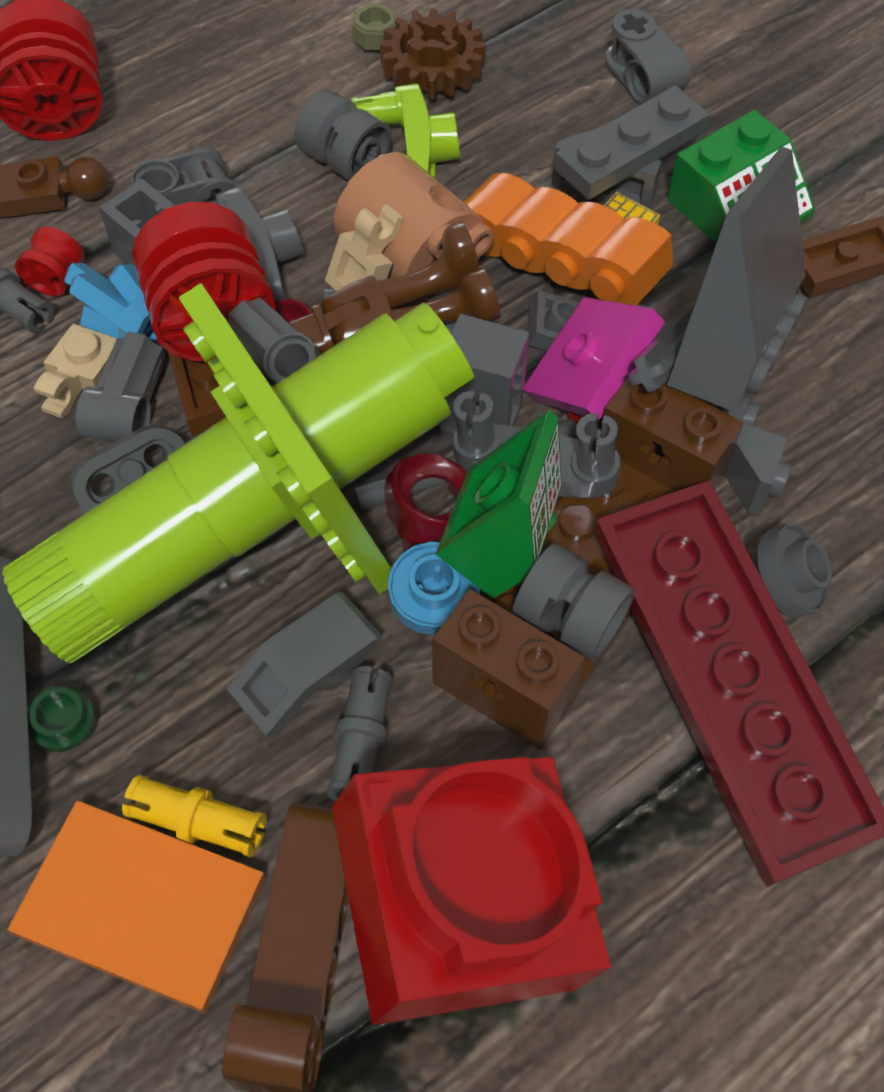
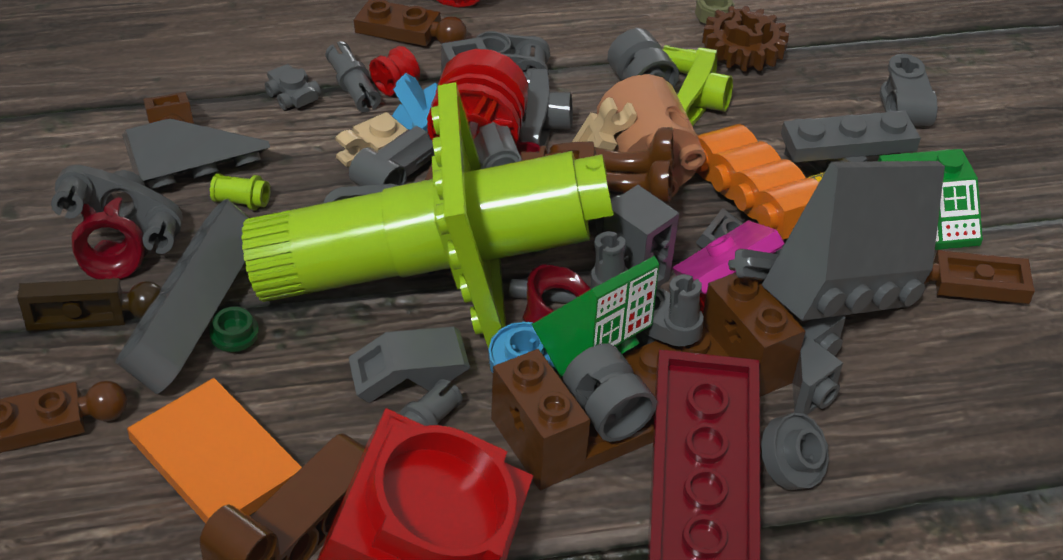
camera: 25 degrees right, 15 degrees down
(194, 815) = (281, 418): yellow pin -> none

